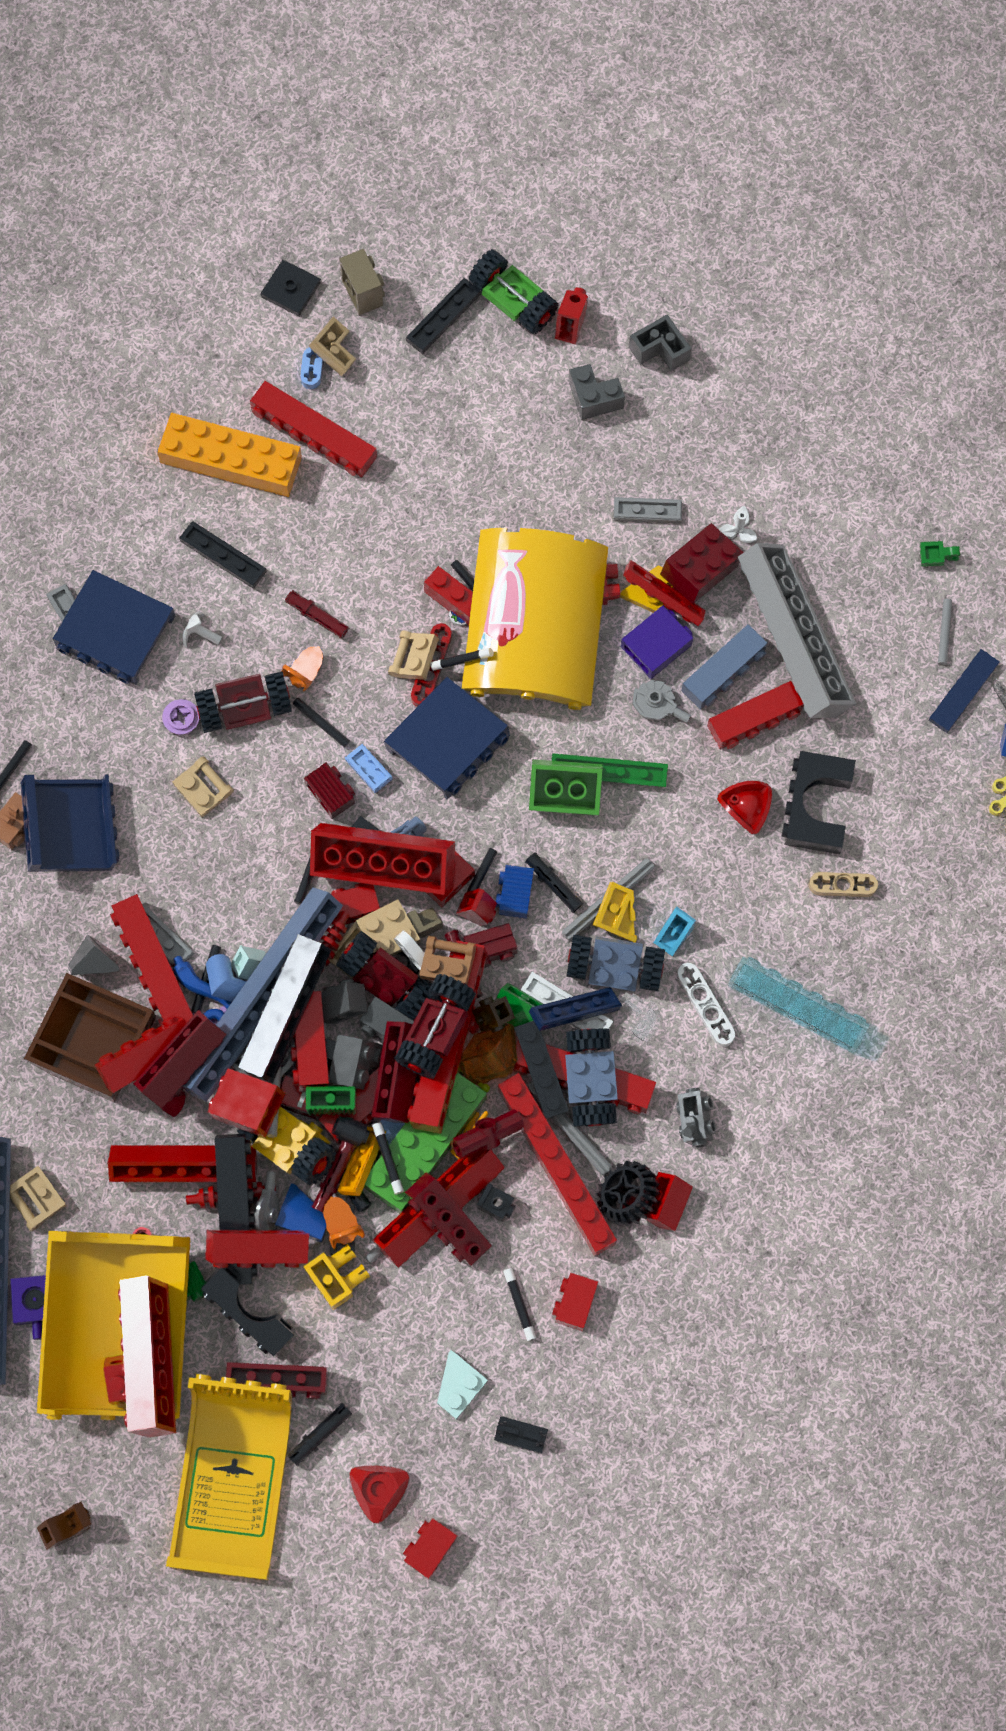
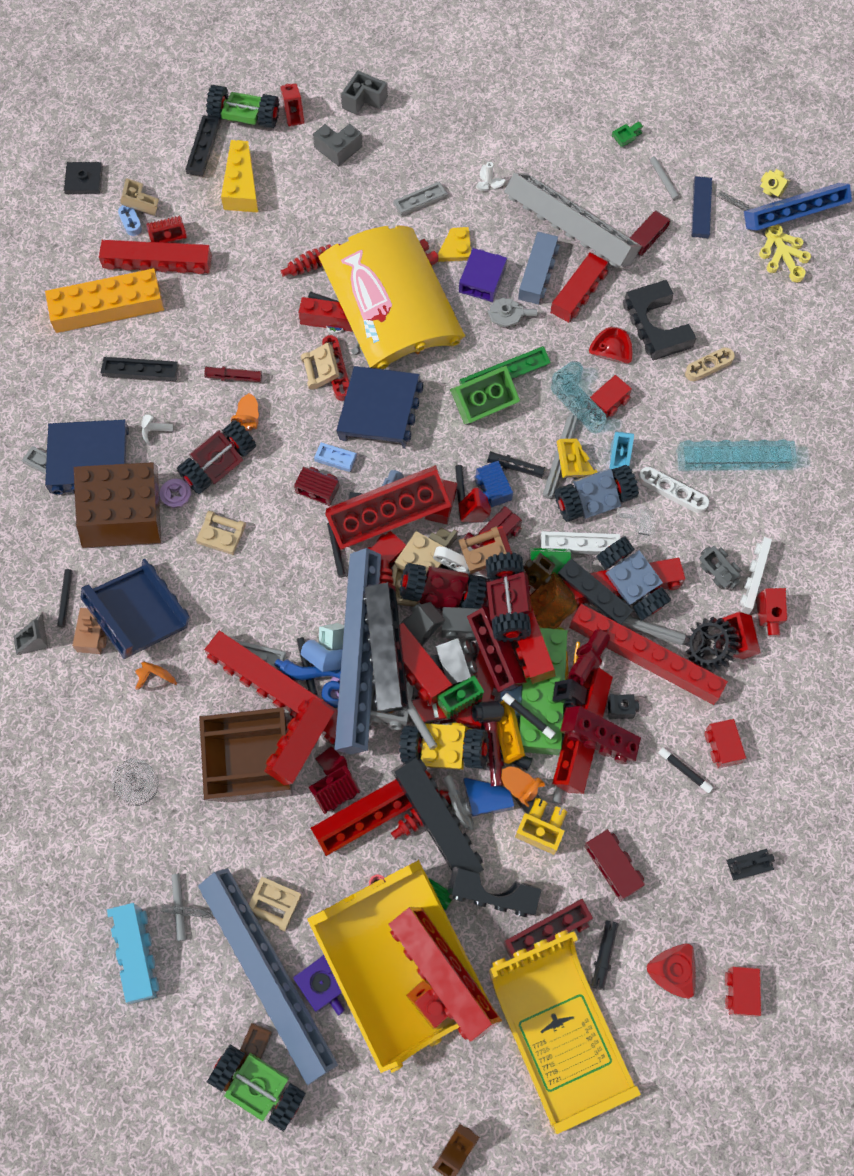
camera: 30 degrees left, 5 degrees down
(53, 899) = (147, 668): none -> orange piece
(91, 959) = (211, 697): dark grey slope -> none
(112, 701) = (117, 504): none -> reddish brown slope
(152, 1122) = (334, 789): none -> dark red brick
(180, 1059) = (330, 728): dark red brick -> none
(246, 1102) = (399, 733): red brick -> none
(257, 1247) = (473, 838): red brick -> none
(321, 722) = (281, 444): black bar -> none
(342, 404) = (167, 230): none -> red brick
(362, 281) = (132, 147): dark tan brick -> none
(384, 1355) = (614, 864): none -> dark red brick
(442, 1159) = (569, 693): none -> black brick
(457, 382) = (238, 184): none -> yellow wedge
(459, 1385) = (682, 855): light aqua wing -> none
(463, 658) = (359, 346): black bar -> none
(479, 523) = (305, 262): none -> red piece
(575, 1008) = (590, 538): dark blue tile -> none
(669, 596) = (475, 241): red plate -> none
(669, 848) = (593, 417): none -> clear light blue beam
(701, 563) = (481, 210): dark red brick -> none
(704, 863) = (612, 395): none -> red brick
(722, 1184) = (772, 609): none -> red torso
(735, 1140) = (752, 583): none -> white plate
(880, 690) = (650, 231): none -> dark red beam

